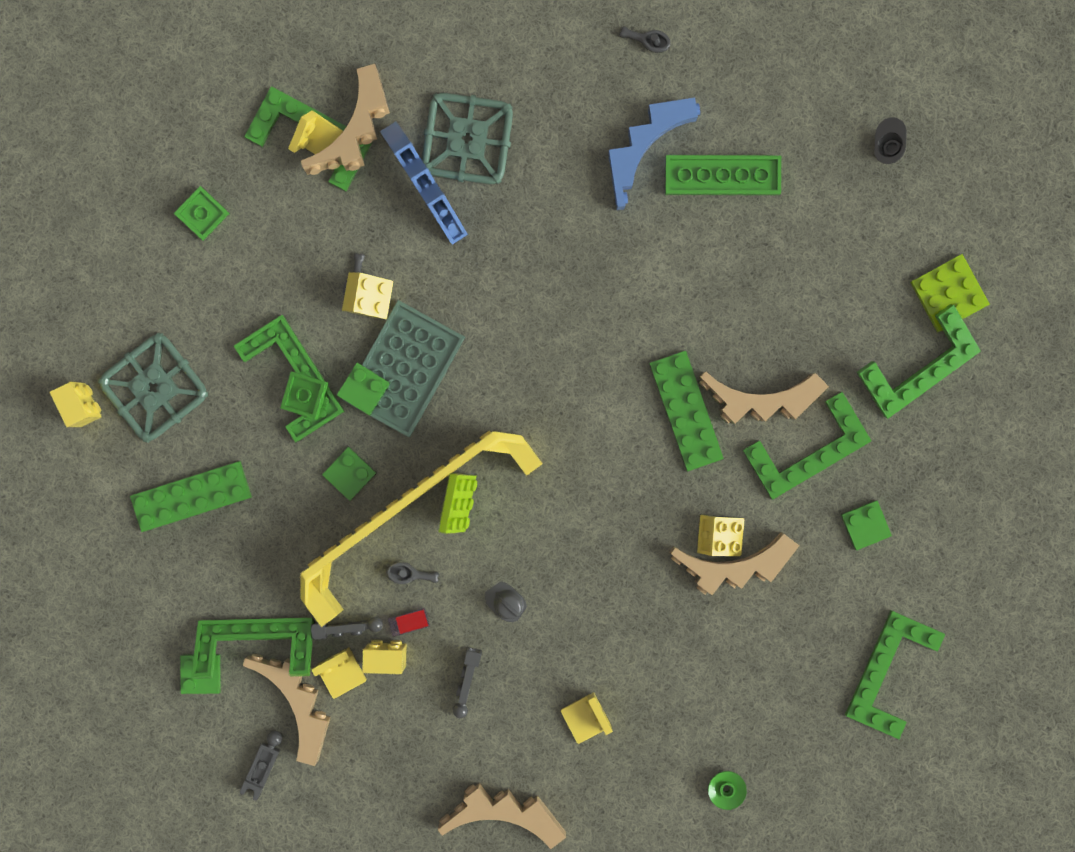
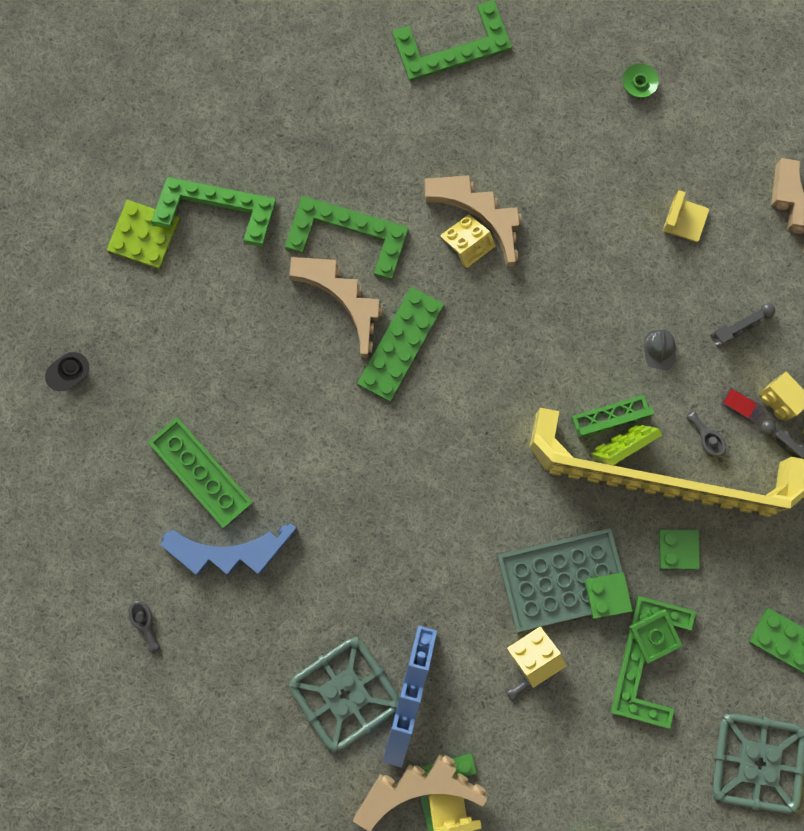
camera: 130 degrees left, 10 degrees down
(482, 514) = (615, 421): none -> bright green fence
(866, 525) = (365, 148): bright green plate -> none

